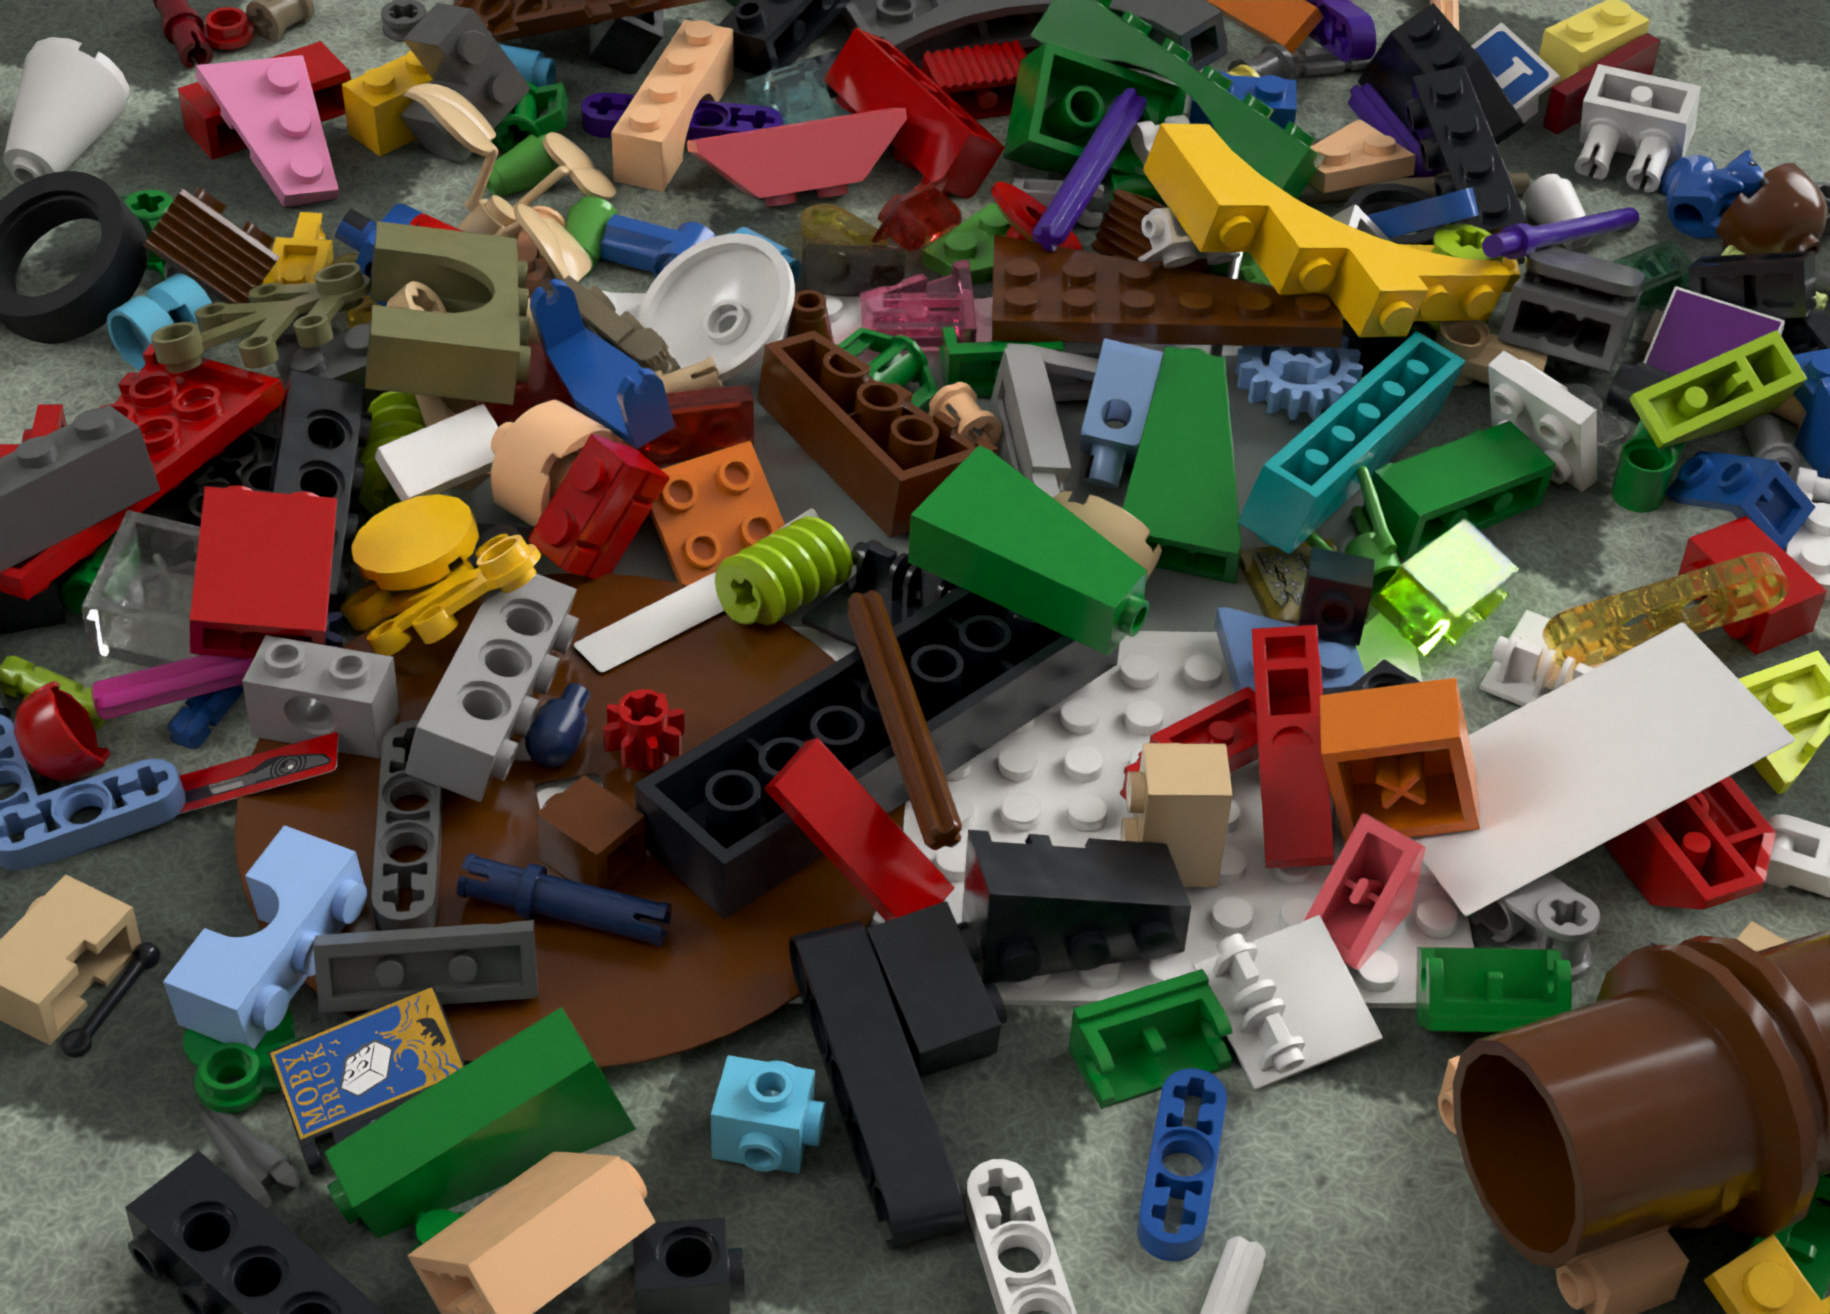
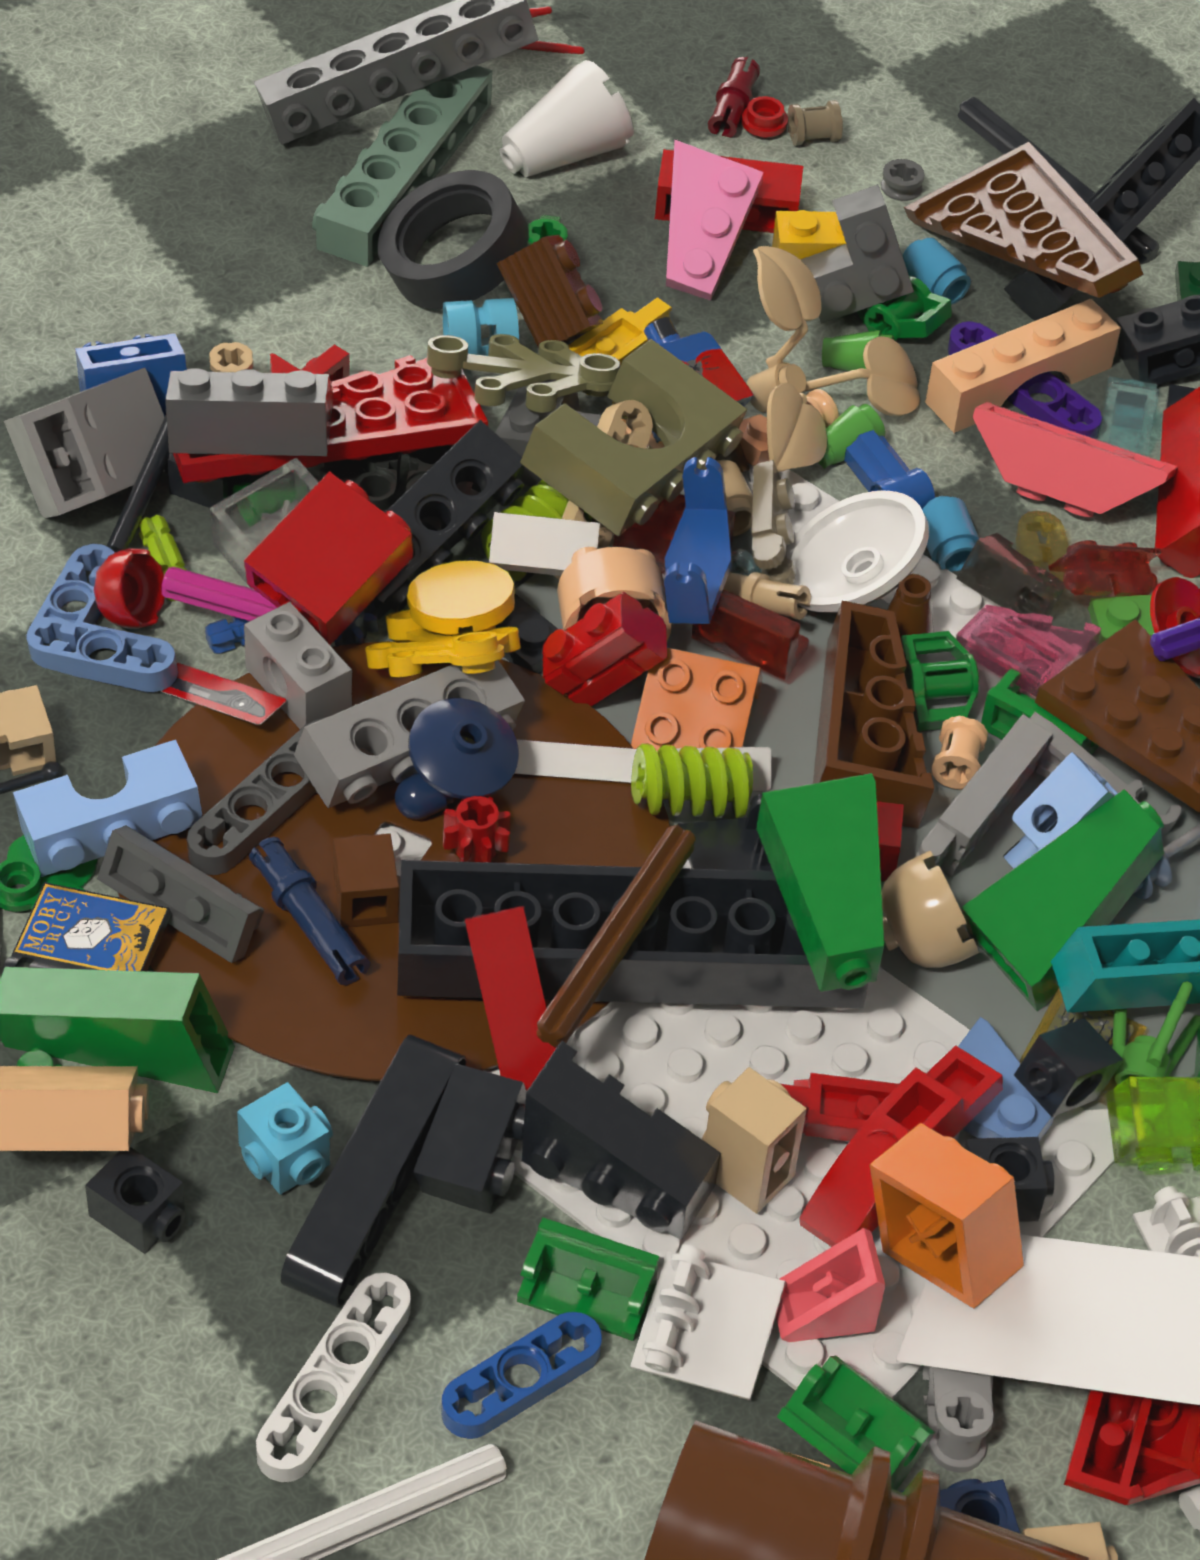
camera: 40 degrees right, 5 degrees up
(570, 661) = (458, 766): none -> dark blue dish

